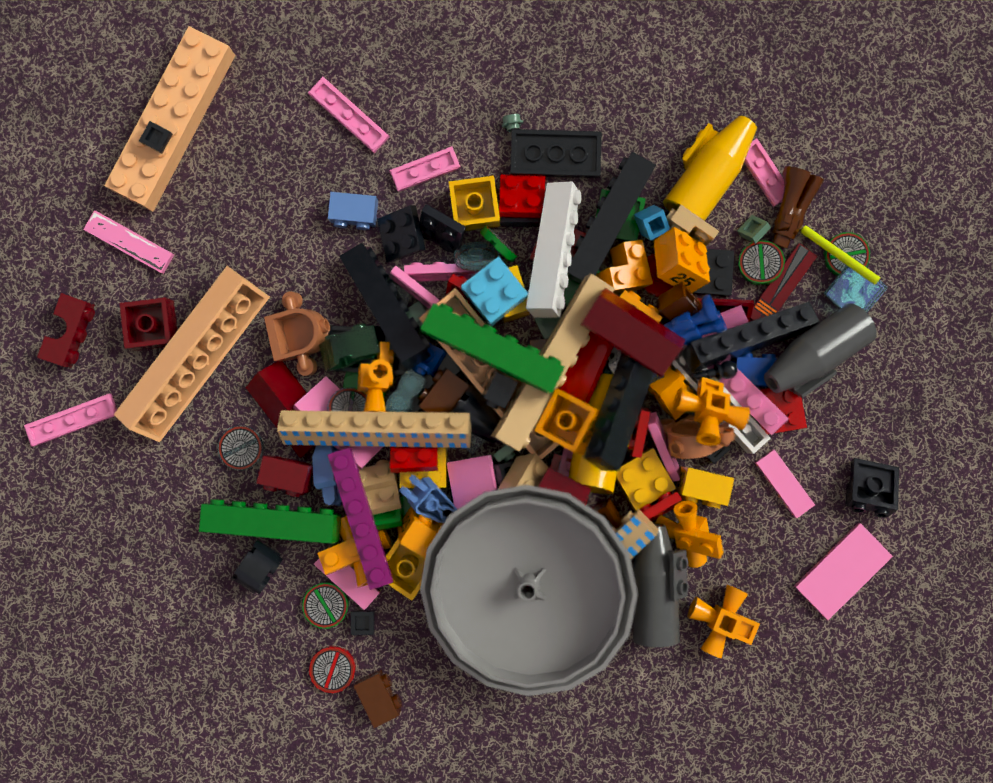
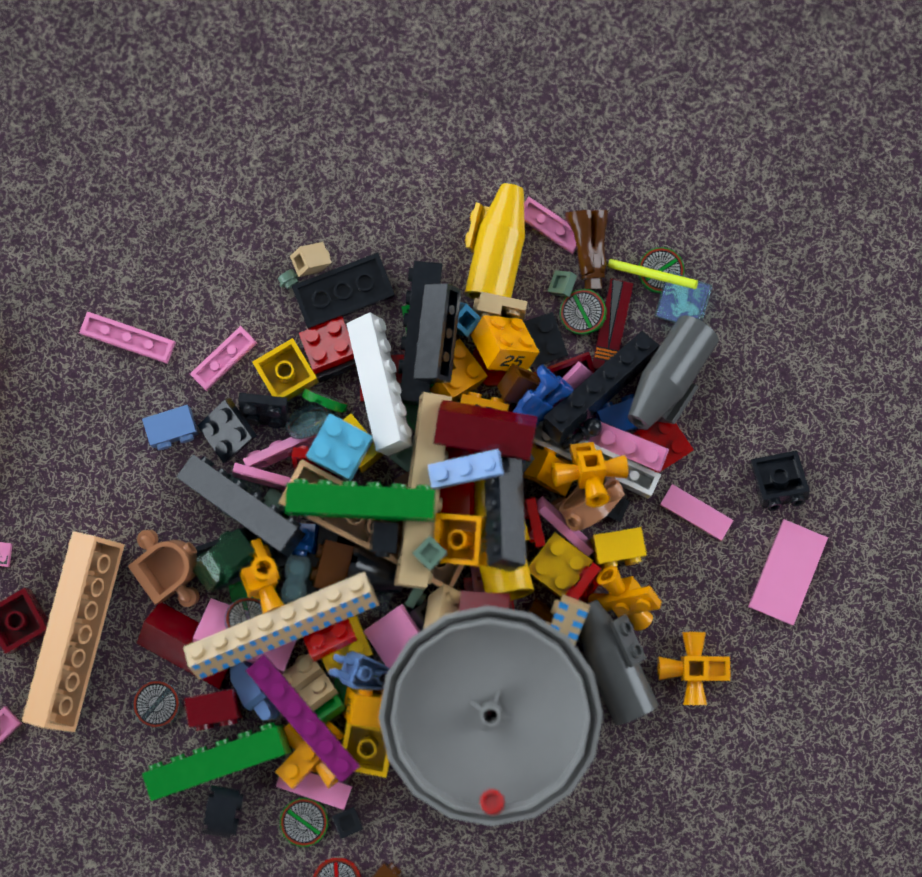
camera: 25 degrees left, 5 degrees down
(496, 667) = (492, 802): none -> red tile
(535, 422) = (430, 553): none -> sand green plate
(539, 112) = (310, 259): none -> tan brick
(600, 360) = (465, 469): none -> light blue plate
(626, 225) = (437, 333): none -> black brick

